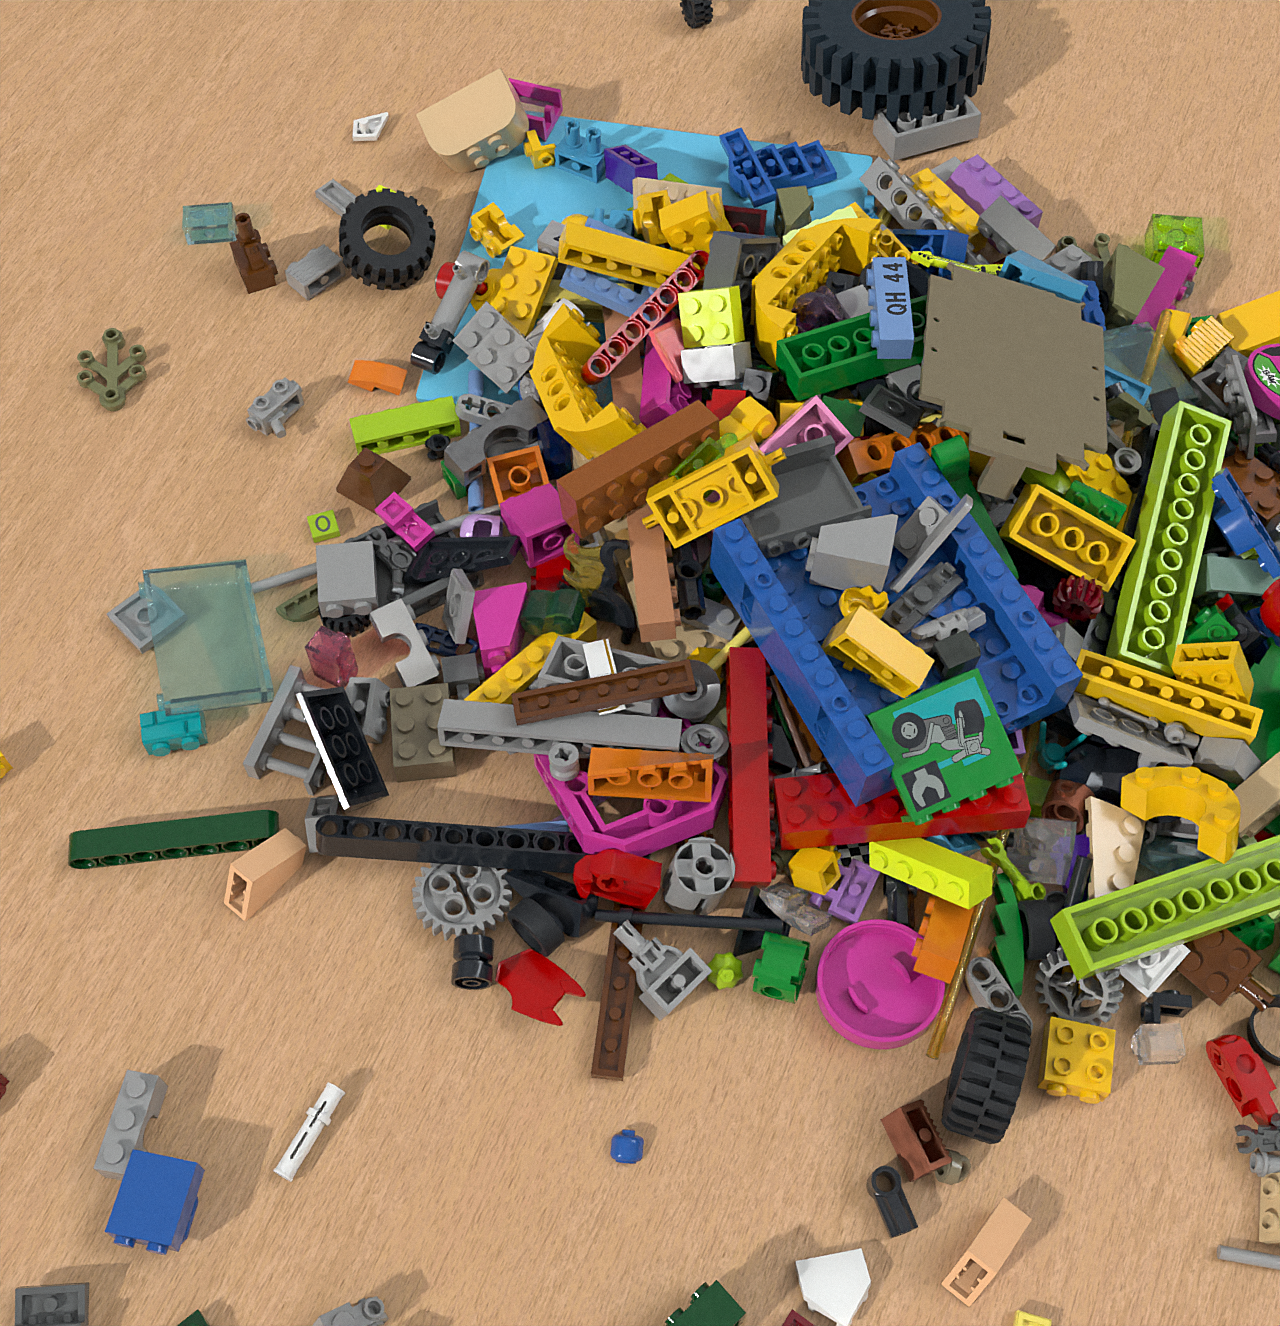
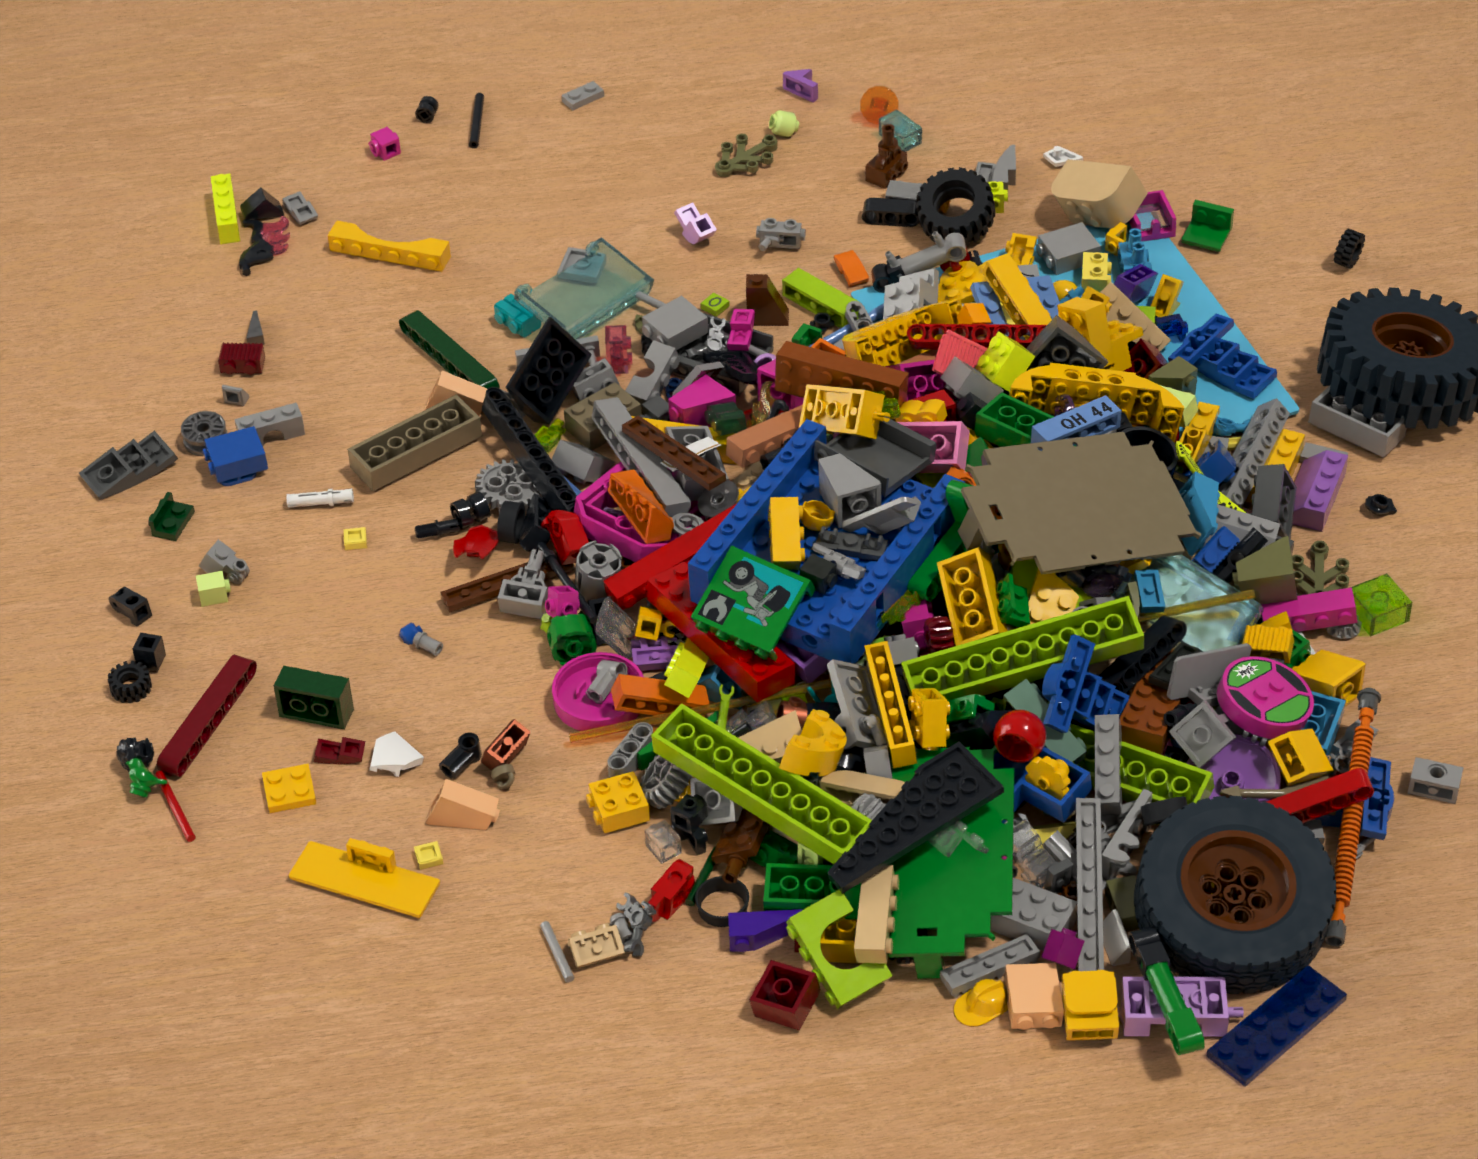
camera: 60 degrees right, 15 degrees down
(28, 1139) = (234, 395): none -> light grey slope
(48, 264) = (801, 84): none -> medium lavender slope
(50, 1217) = (200, 427): none -> flat silver wheel
(100, 309) = (783, 123): none -> yellowish green head
(159, 216) = (877, 103): none -> clear orange tile
(192, 476) = (695, 226): none -> lavender brick
(307, 965) = (414, 442): none -> dark tan brick
(325, 297) = (890, 212): none -> black beam
(351, 173) = (1006, 168): none -> light grey slope
(406, 806) = (550, 436): none -> clear neon green plate
(411, 1125) = (355, 538): none -> light yellow tile
(470, 1016) = (437, 528): none -> black axle
(479, 795) = (580, 462): none -> light grey slope
(518, 423) = (814, 326): flat silver arch -> none
(520, 189) = (1065, 247): none -> light grey brick
(562, 769) = (619, 463): light grey wheel -> none
(572, 191) = (1095, 270): none -> light yellow brick
(574, 79) = (1208, 226): none -> green bracket
(607, 310) = (973, 314): none -> light orange brick
(655, 149) = (1166, 296): none -> yellow slope
(664, 1137) = (427, 643): none -> light grey pin
(701, 175) = (1172, 326): none -> clear blue bracket
(734, 945) = (562, 601): none -> dark pink brick
(869, 960) = (606, 675): none -> light grey piece
(986, 1075) = (558, 725): black tyre -> none
(1037, 174) = (1380, 504): none -> black animal
(1151, 722) = (868, 682): light grey hinge -> none
(1155, 1001) = (692, 809): none -> black brick
(1213, 1015) = (703, 876): none -> dark green bar

